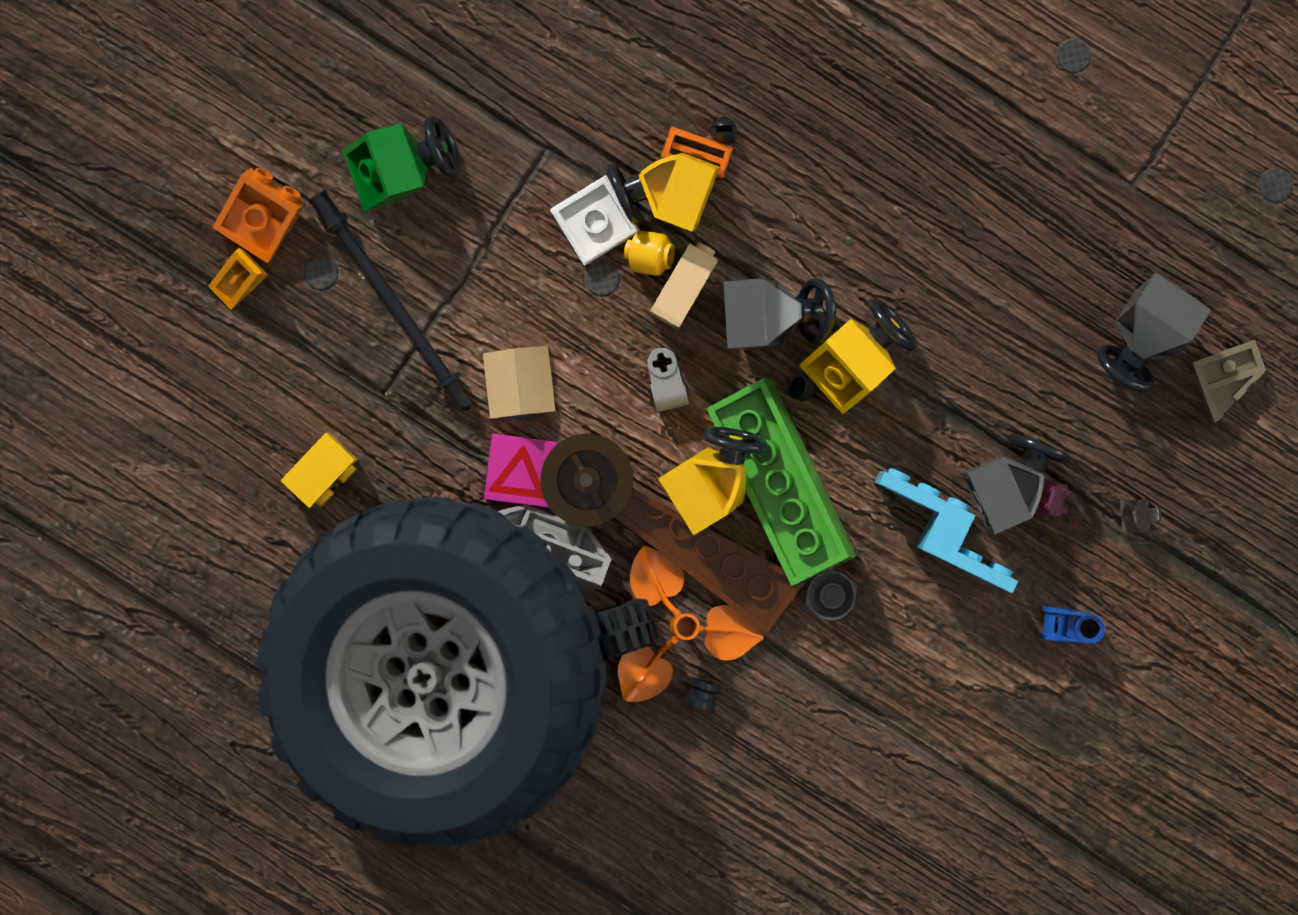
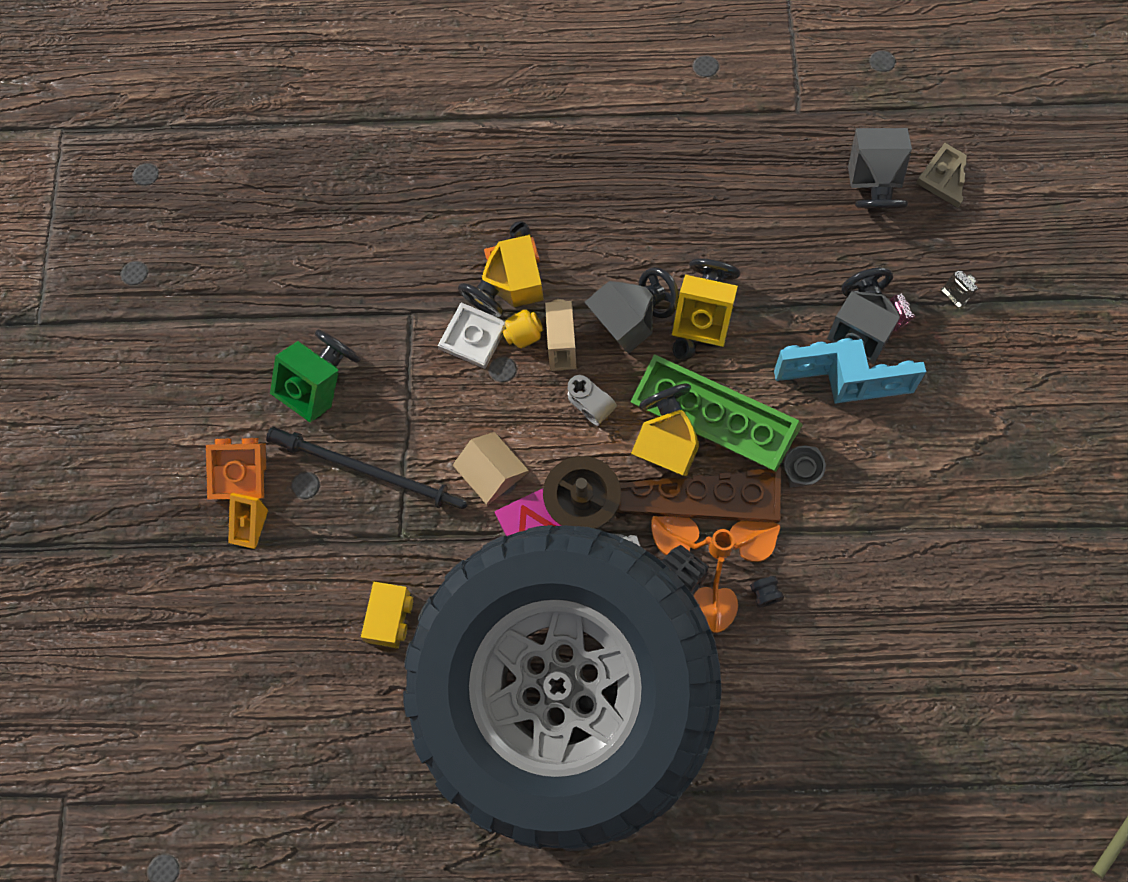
camera: 30 degrees left, 20 degrees down
(1068, 625) = (973, 384): blue piece -> none

